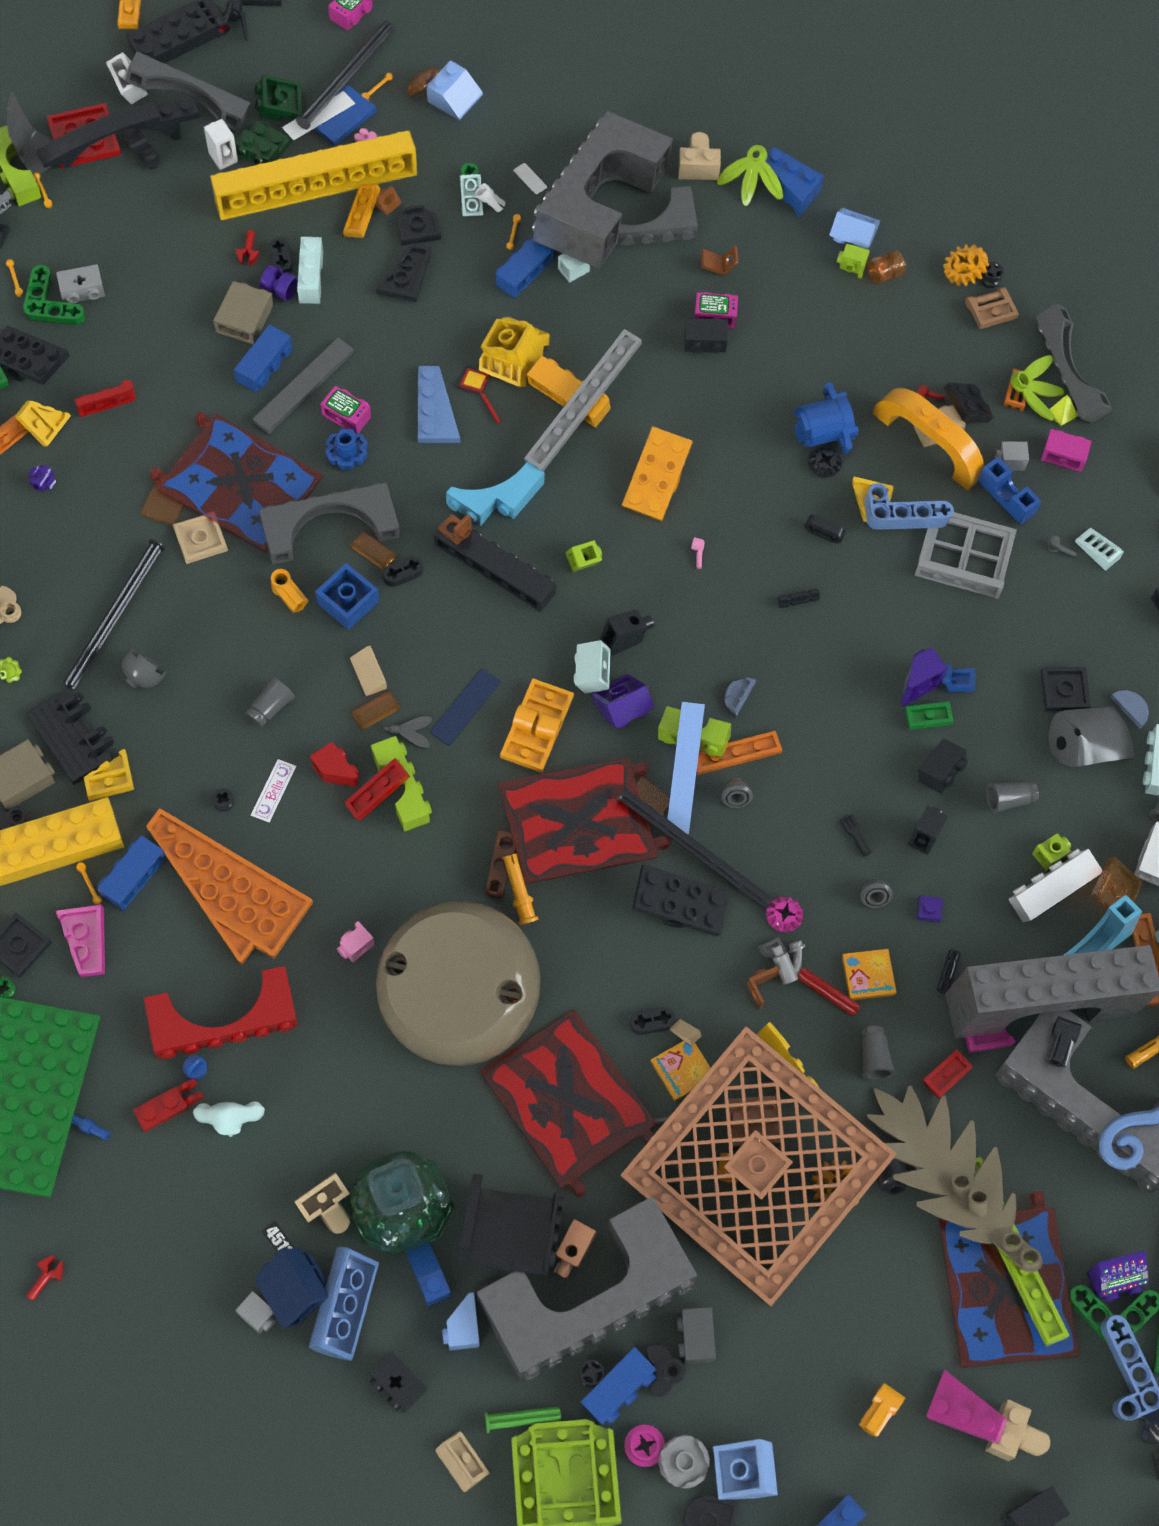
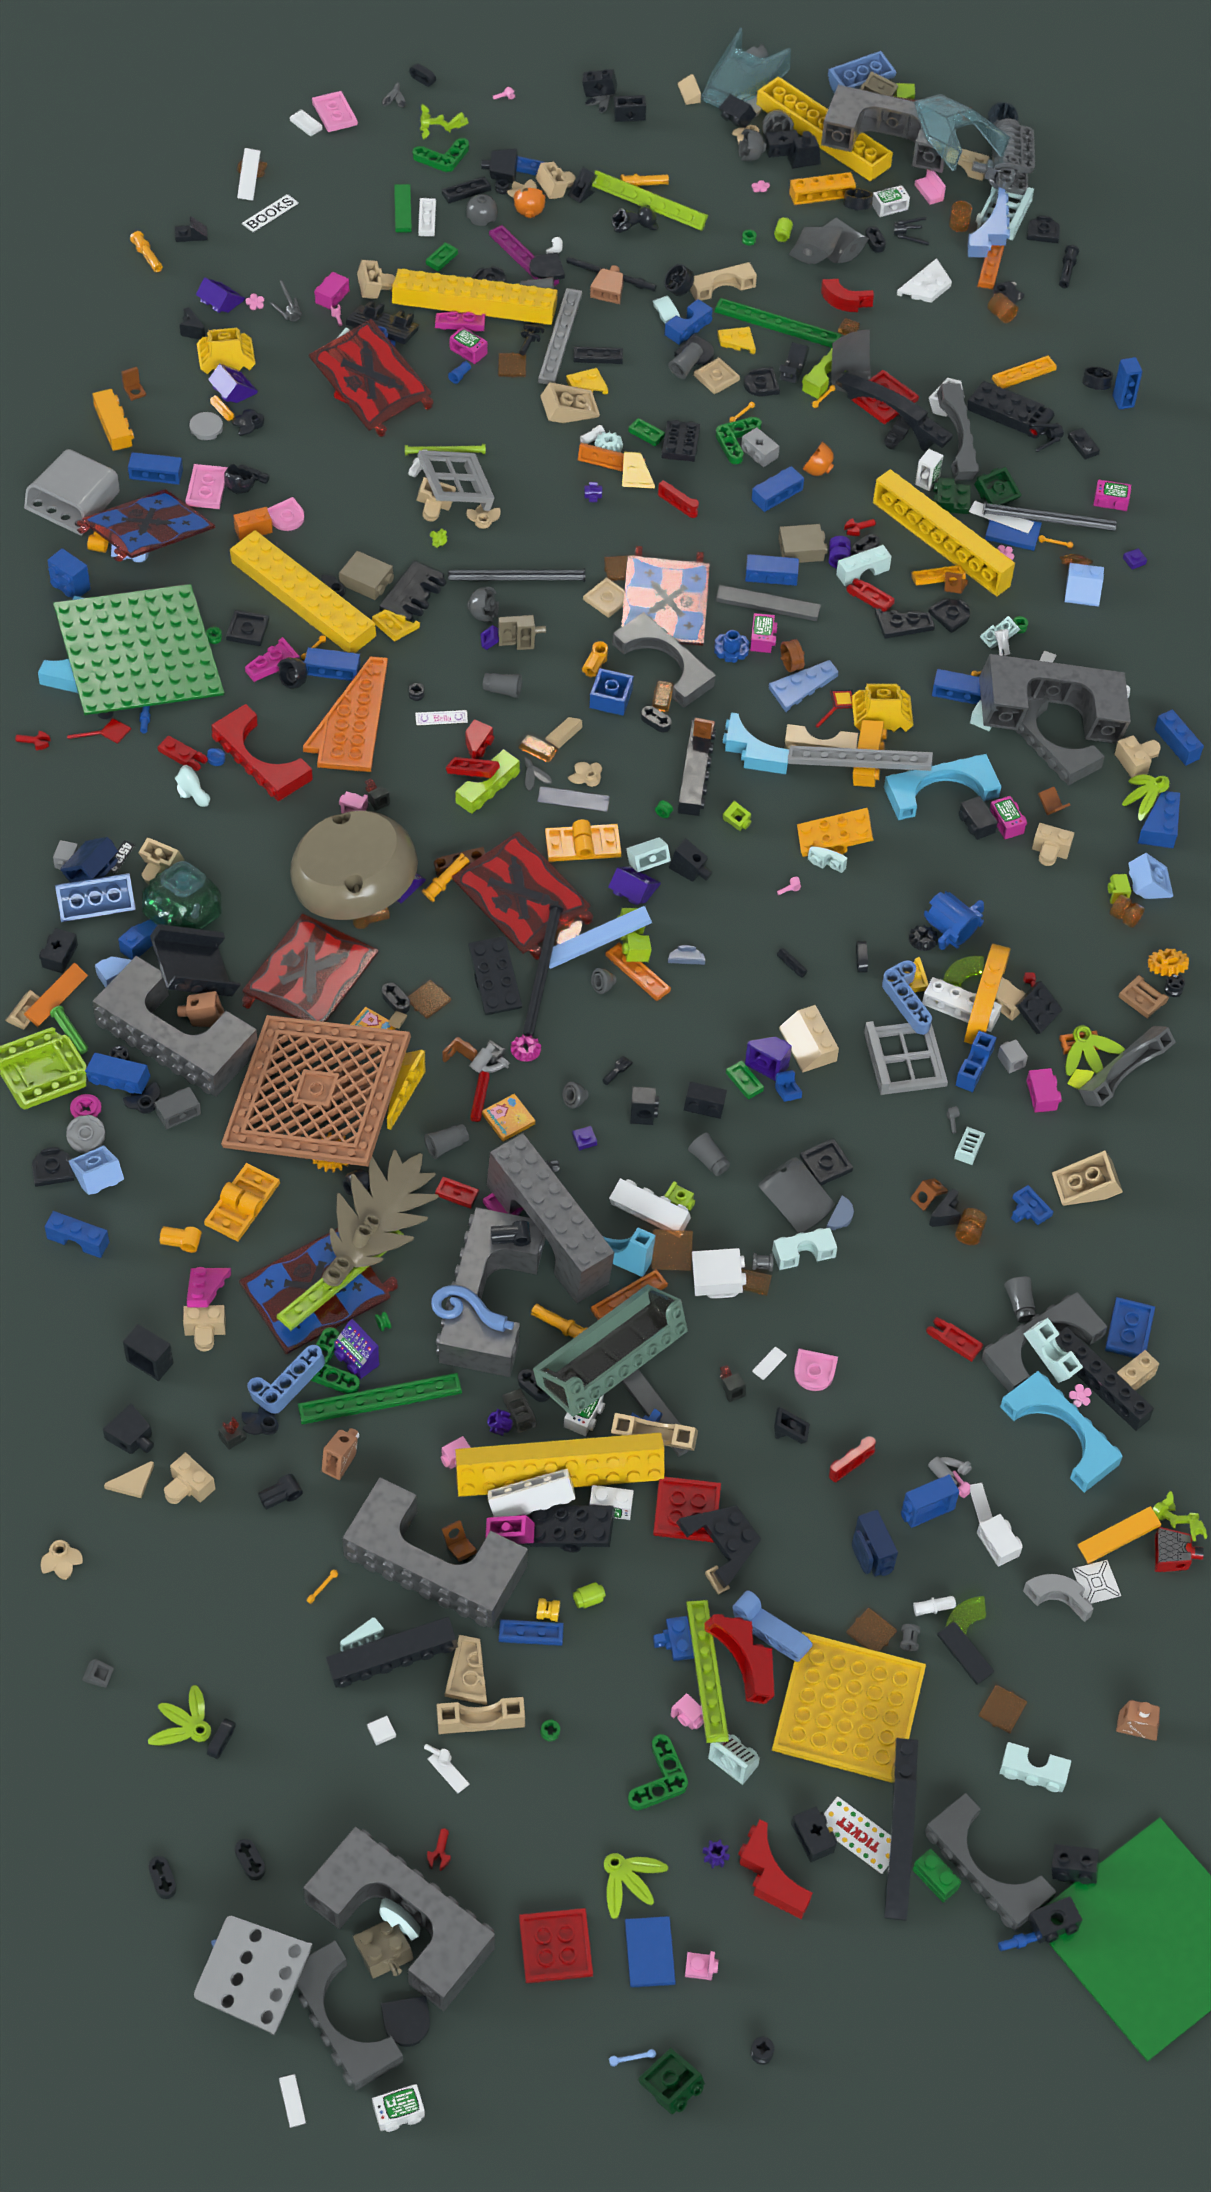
camera: 65 degrees right, 10 degrees down
(82, 1172) = (113, 730): none -> red piece
(124, 922) = (292, 672): none -> black hair
(139, 238) = (820, 461): none -> orange cylinder
(150, 297) = (777, 488): none -> blue brick
(191, 685) = (489, 637): none -> dark purple plate
(209, 649) = (518, 631): none -> dark tan plate
(351, 284) = (870, 595): none -> red hinge
(358, 911) = (377, 796): none -> pearl dark grey piece
(399, 396) = (792, 655): none -> dark orange wheel
(438, 676) = (586, 774): none -> tan plate
(441, 31) = (1135, 558): none -> dark purple plate
(461, 1413) = (55, 994): none -> orange tile
(513, 447) = (799, 736): none -> tan arch
(534, 622) = (664, 809): none -> green bush
(644, 310) = (973, 772): none -> medium azure arch
(668, 986) = (429, 999): none -> clear orange piece
(679, 503) = (823, 857): none -> light aqua slope
(695, 113) = (1179, 737): none -> blue brick
(771, 288) = (1052, 843): none -> tan brick
(860, 1317) = (241, 1202): none -> light orange plate
(882, 446) = (963, 969): none -> clear neon green tile
(906, 628) = (809, 1039): none -> tan slope
(921, 473) = (955, 1001): none -> white brick
(1084, 1230) = (383, 1321): none -> green bush
(1142, 607) = (932, 1188): none -> dark orange bracket

